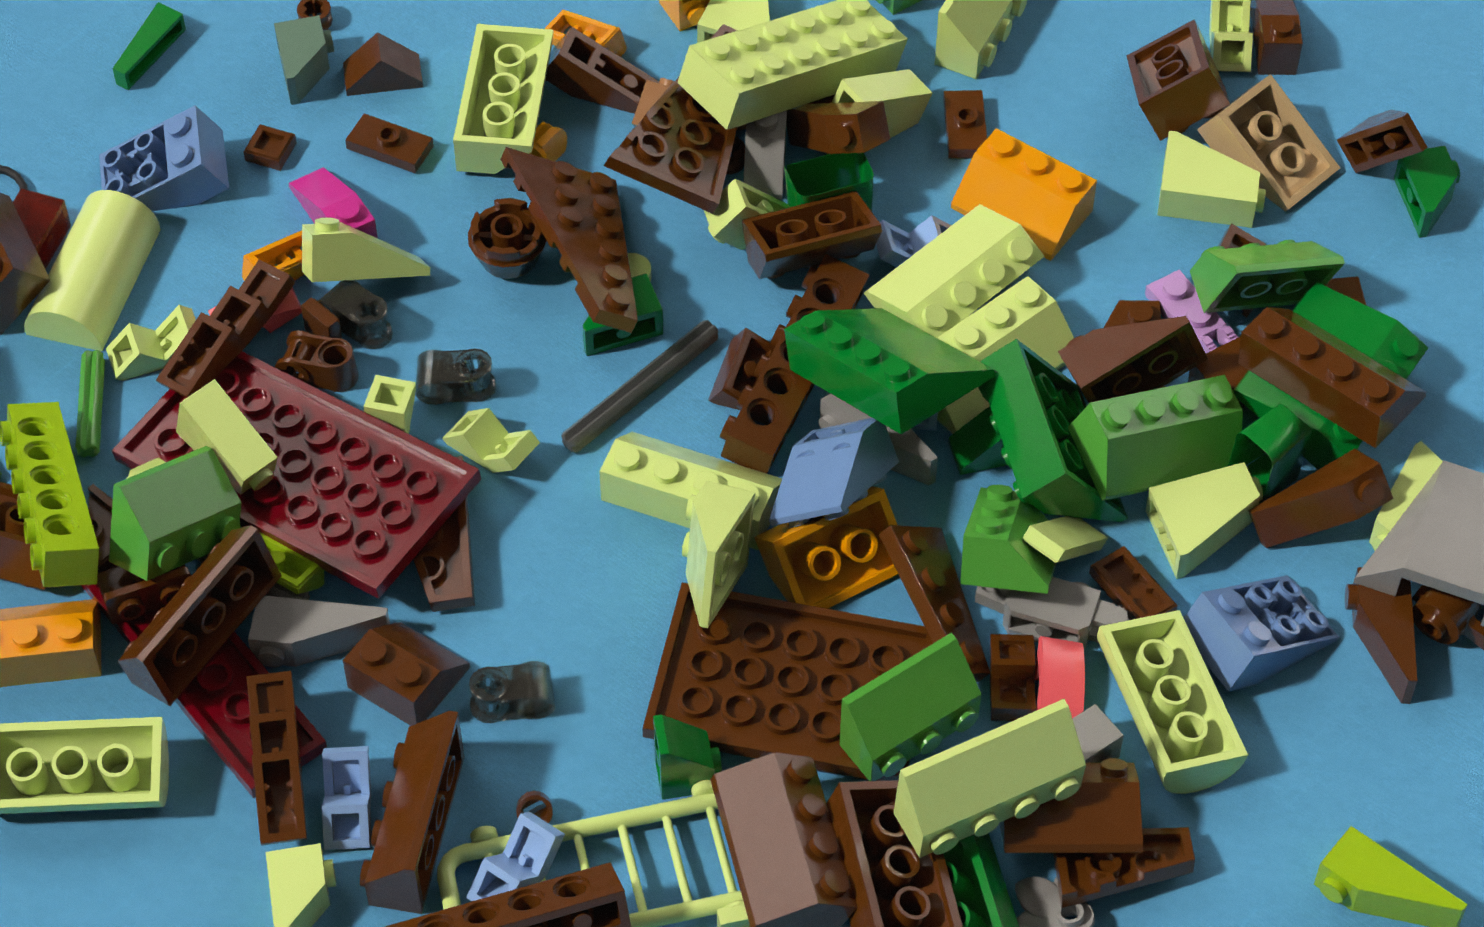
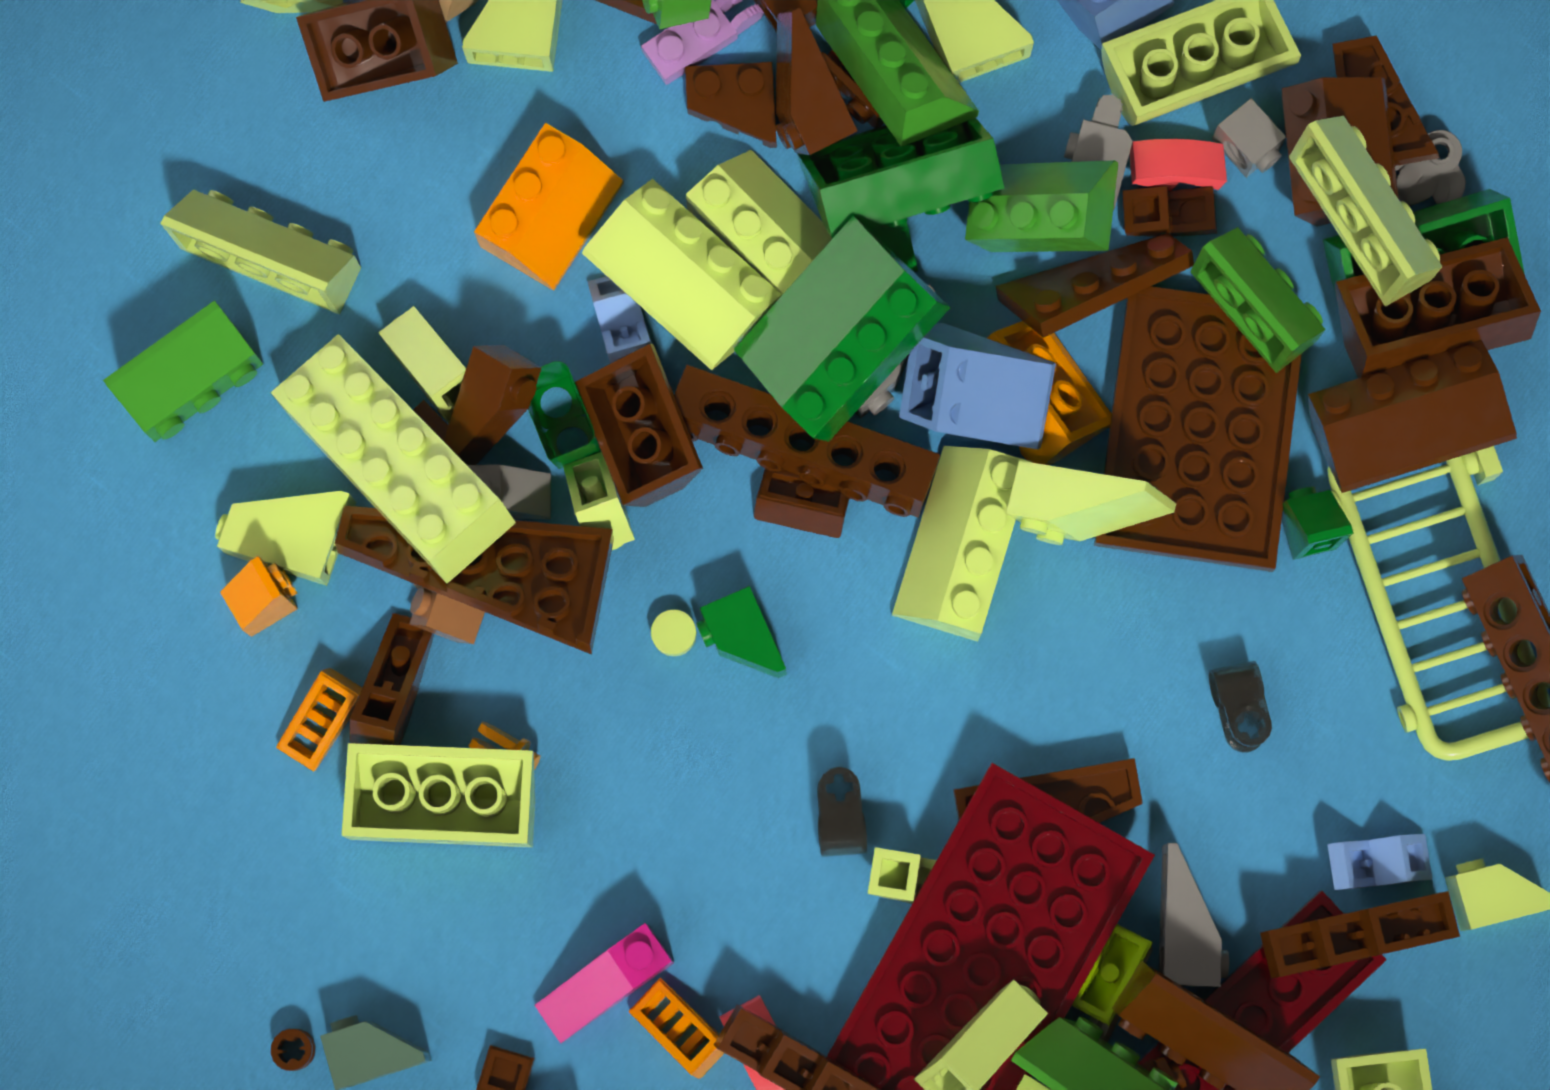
camera: 90 degrees left, 25 degrees up
(320, 320) = (777, 970): reddish brown tile -> none
(320, 361) = (828, 974): reddish brown piece -> none
(344, 253) = (695, 937): yellowish green slope -> none
(360, 314) = (752, 943): clear smoke piece -> none
(382, 67) = (381, 954): reddish brown slope -> none
(389, 143) = (494, 931): reddish brown plate -> none
(402, 671) = (1222, 818): reddish brown slope -> none
(414, 815) = (1404, 786): reddish brown slope -> none
(488, 443) = (922, 763): yellowish green slope -> none
(506, 238) = (654, 769): reddish brown cone -> none
(523, 861) = (1454, 677): light blue slope -> none
(542, 811) = (1373, 670): reddish brown hinge -> none
(584, 221) = (654, 680): reddish brown wing -> none
(639, 386) = (832, 609): dark grey axle -> none
(964, 122) = (436, 275): reddish brown plate -> none
(1064, 538) = (1037, 152): yellowish green tile -> none
(1131, 585) = (1058, 95): reddish brown plate -> none

